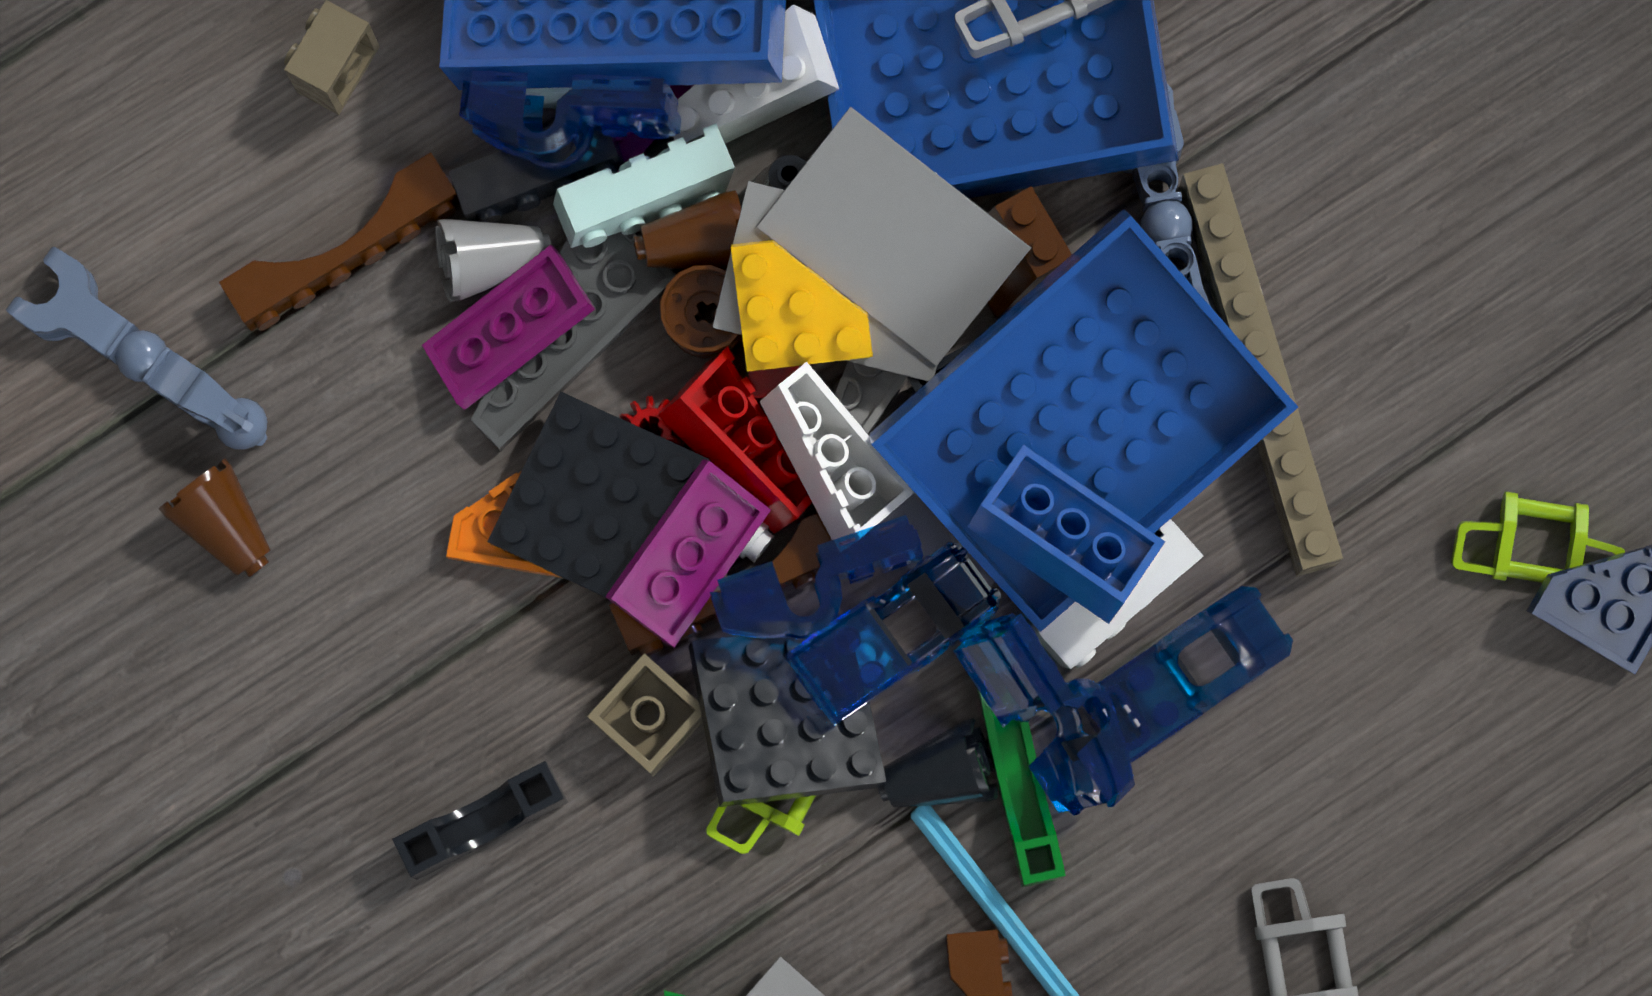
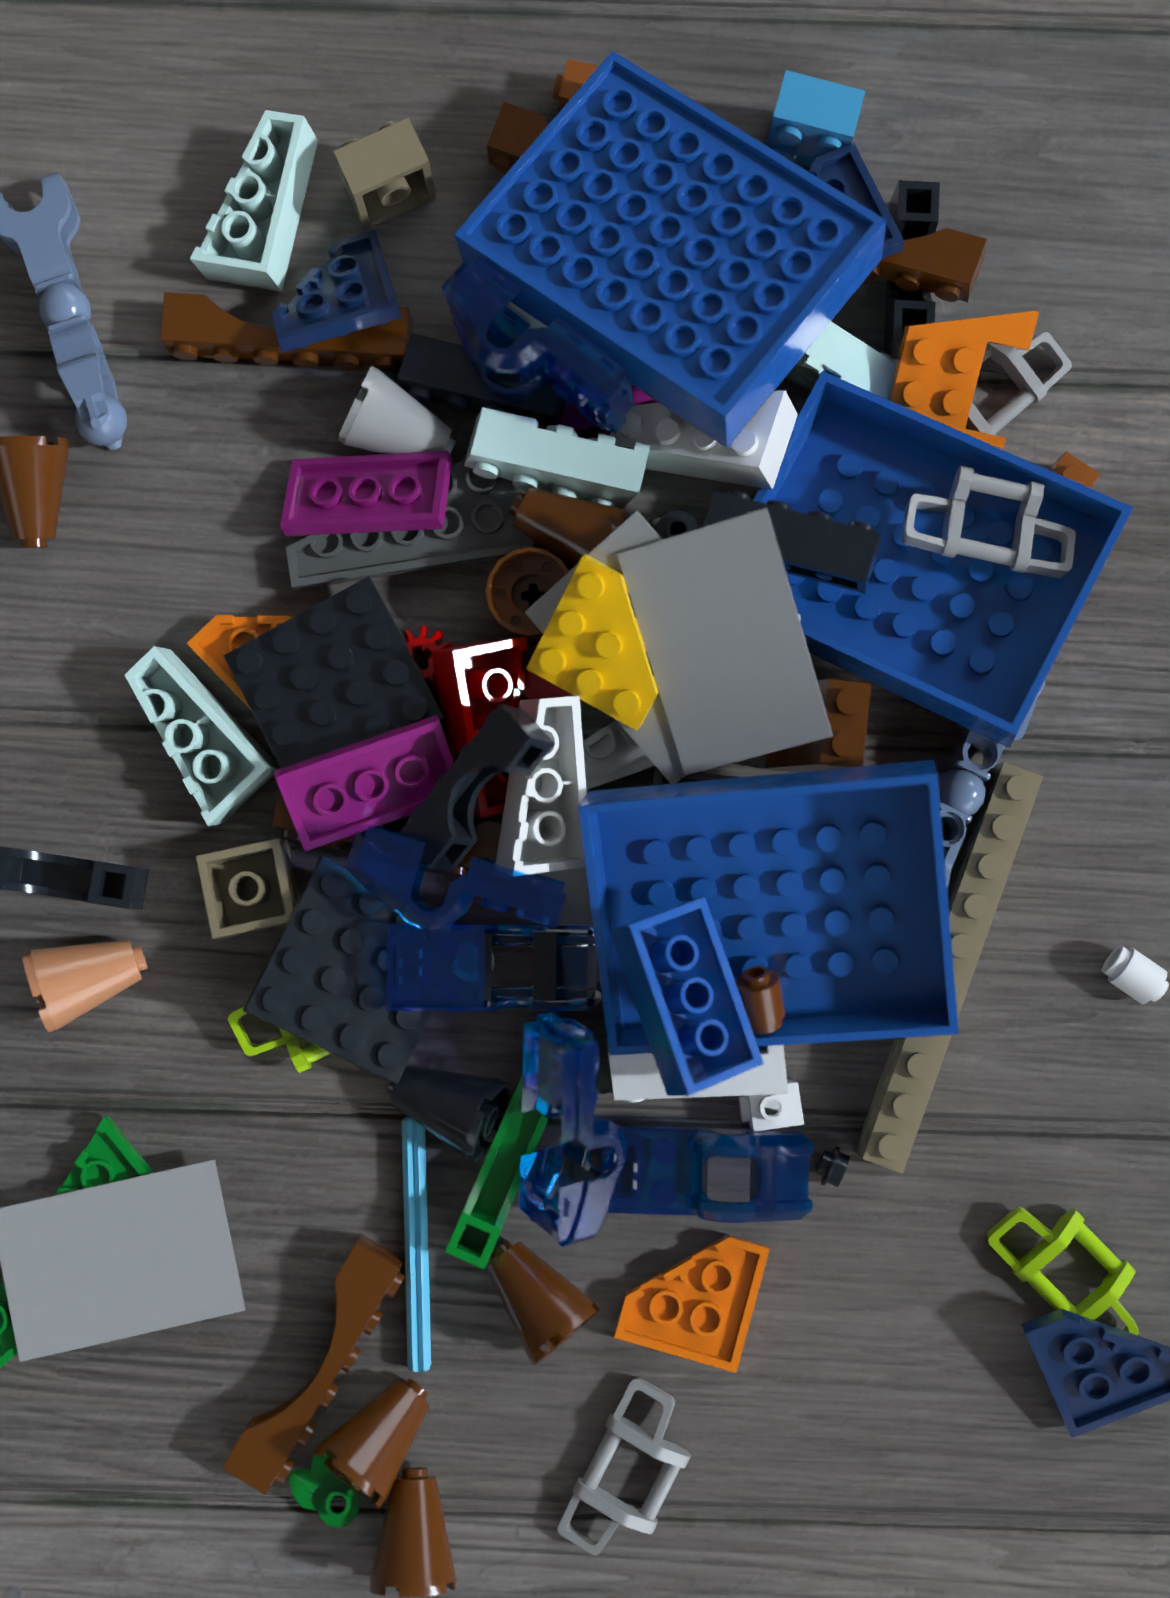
camera: 30 degrees right, 5 degrees up
(249, 166) = (260, 215): none -> light aqua wedge
(368, 181) = (339, 298): none -> dark blue plate
(526, 624) = (207, 743): none -> light aqua wedge
(561, 889) = (80, 977): none -> nougat cone
(777, 439) = (445, 819): none -> black arch
(901, 110) = (810, 542): none -> black brick
(1127, 493) = (761, 998): none -> reddish brown brick
(1129, 875) = (538, 1299): none -> reddish brown cone
(1201, 584) = (772, 1110): none -> white brick
(1260, 787) = (699, 1304): none -> orange plate
(1286, 598) = (832, 1166): none -> black plate
(1415, 269) = (1135, 975): none -> white brick

